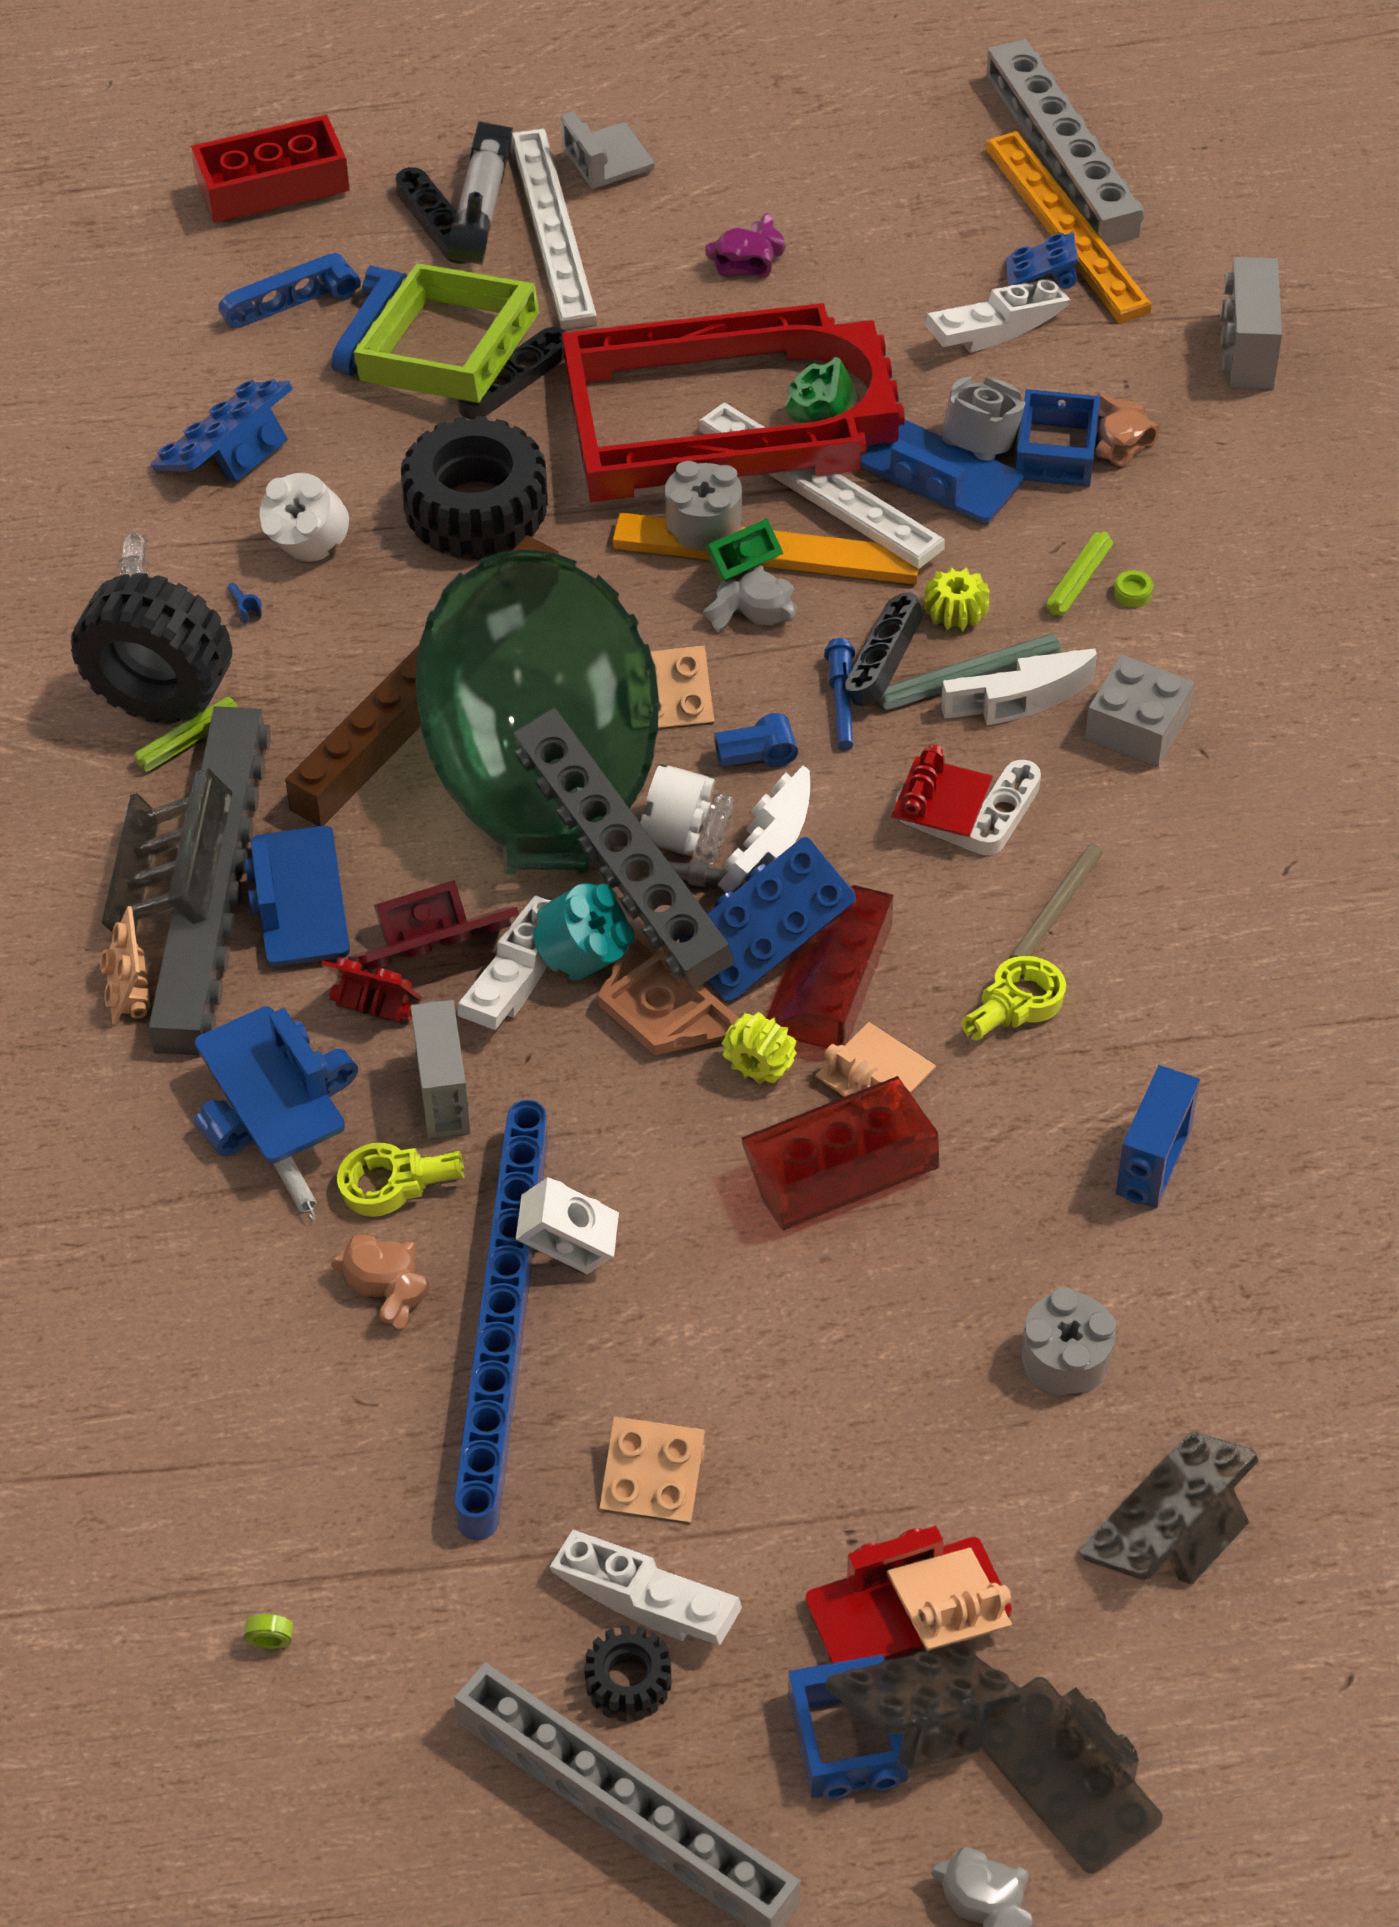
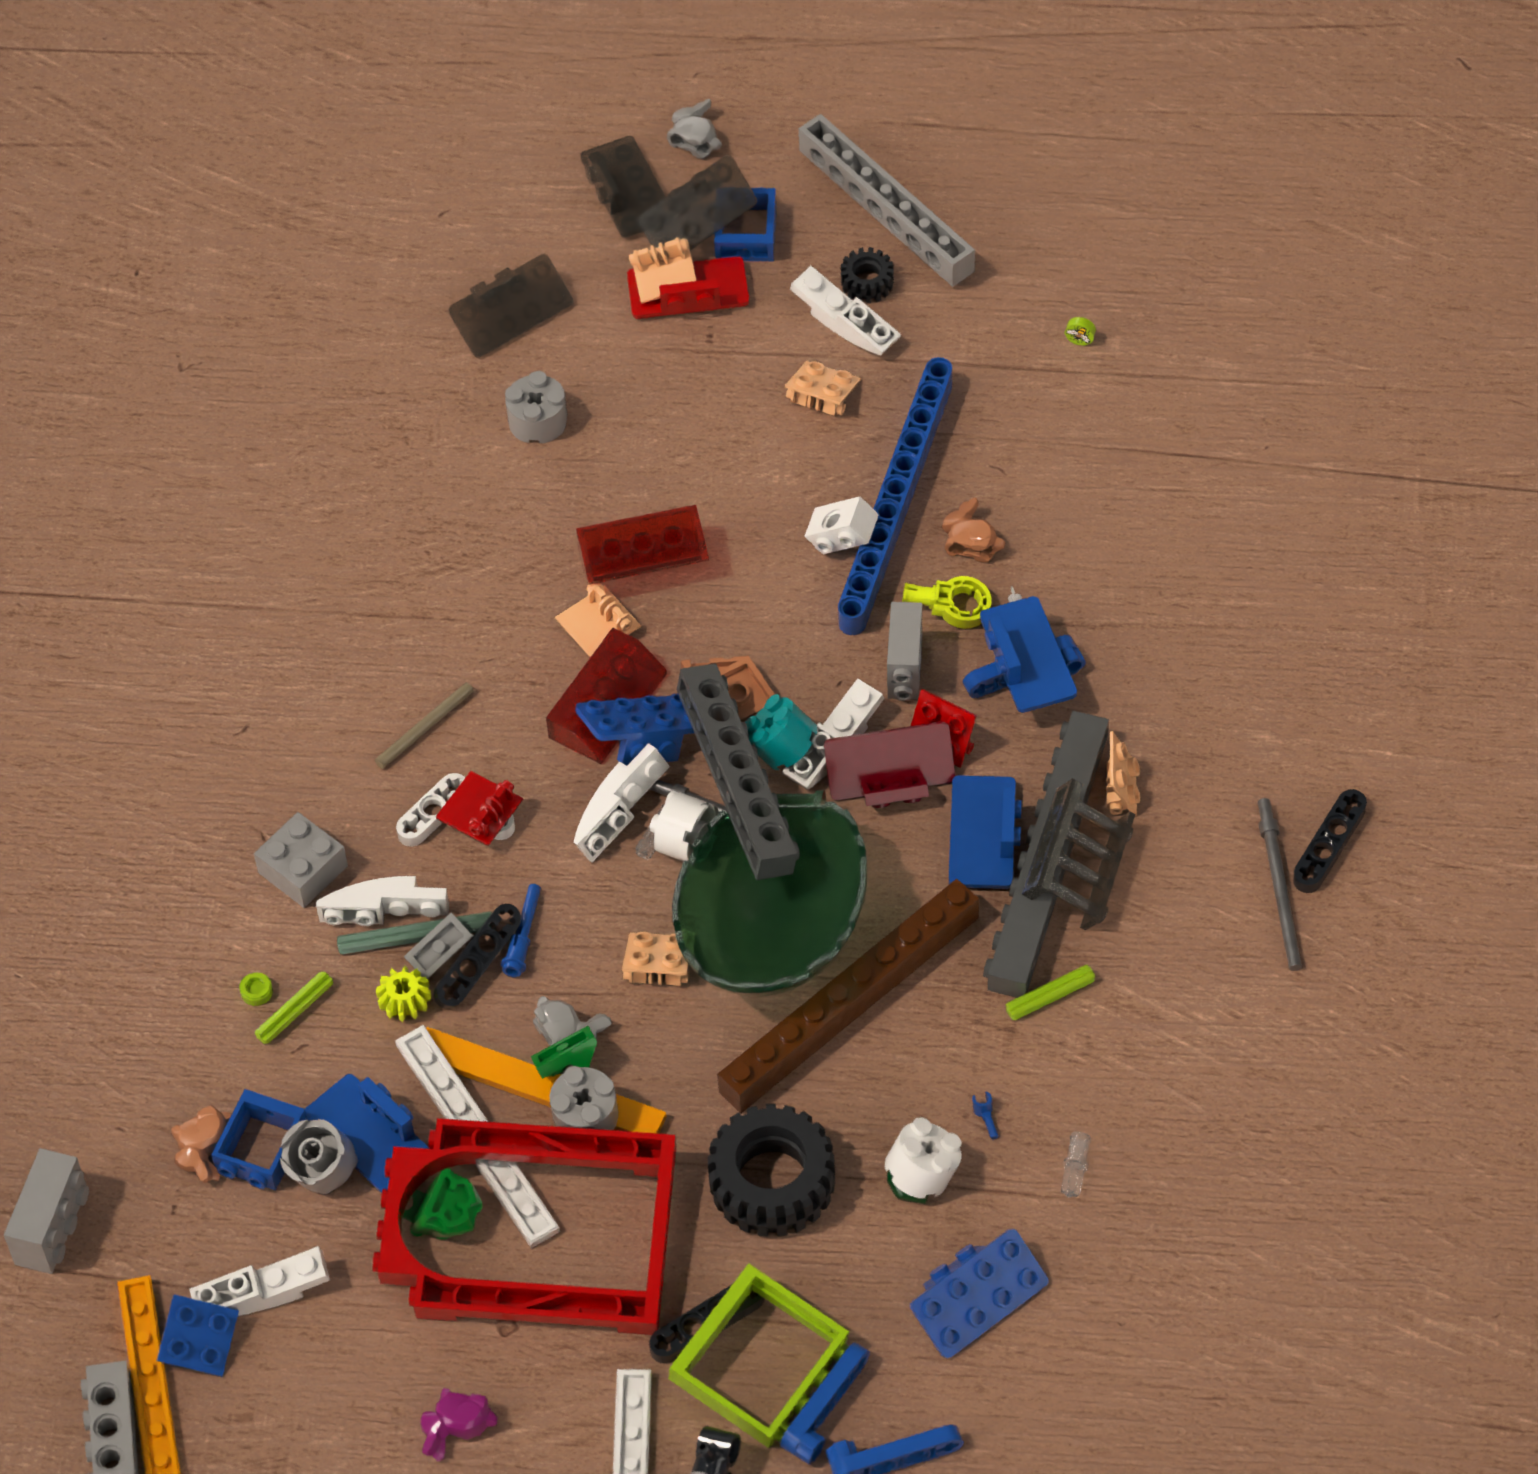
camera: 165 degrees left, 5 degrees up
(151, 648) = (1069, 1010): black tyre -> none
(759, 1048) = (676, 632): neon yellow gear -> none
(767, 741) = (594, 892): blue piece -> none
(934, 647) = (438, 946): none -> light grey plate
(1007, 1003) = (485, 642): neon yellow pin -> none
(1157, 1136) = (427, 516): blue window -> none

